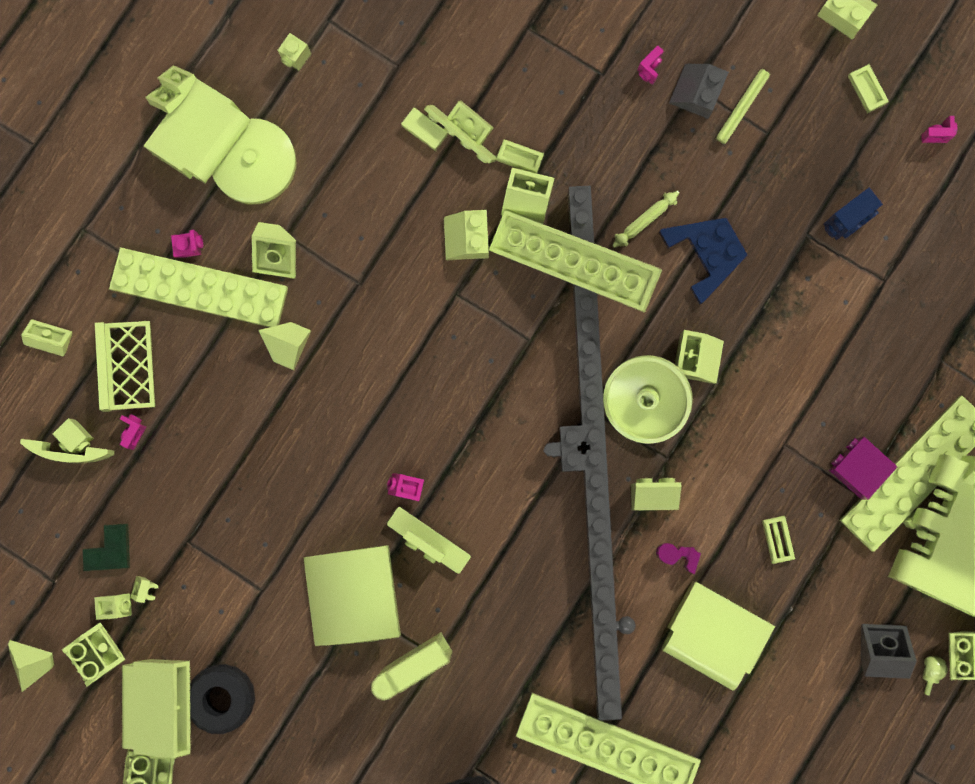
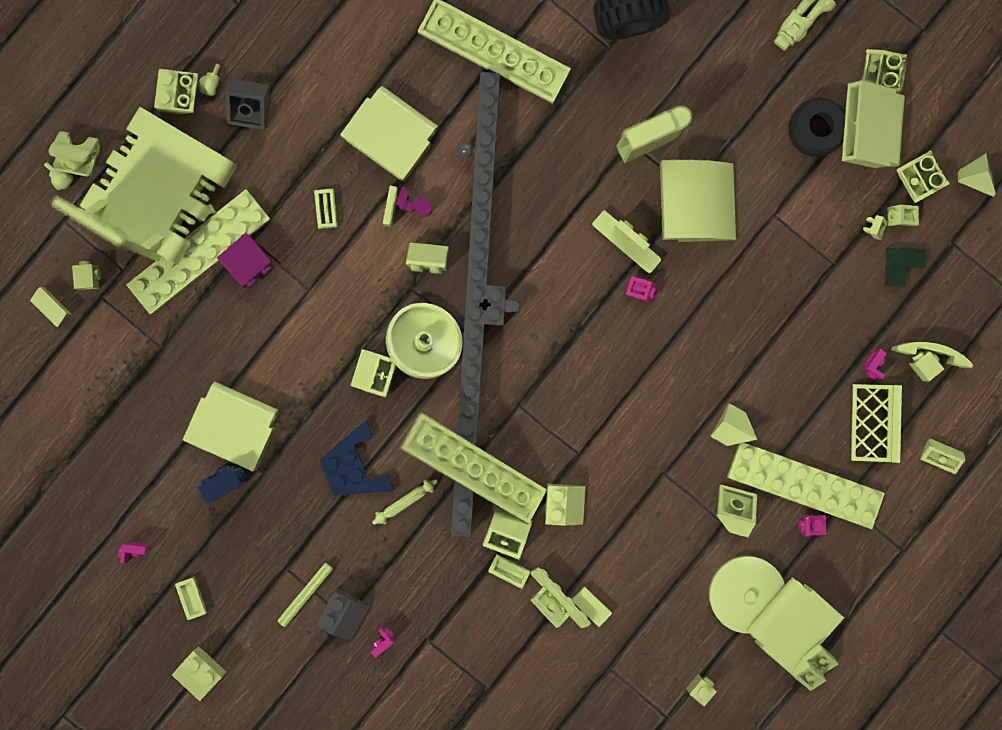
camera: 175 degrees right, 5 degrees up
(705, 544) = (390, 206): none -> yellowish green tile
(850, 279) = (232, 426): none -> yellowish green piece

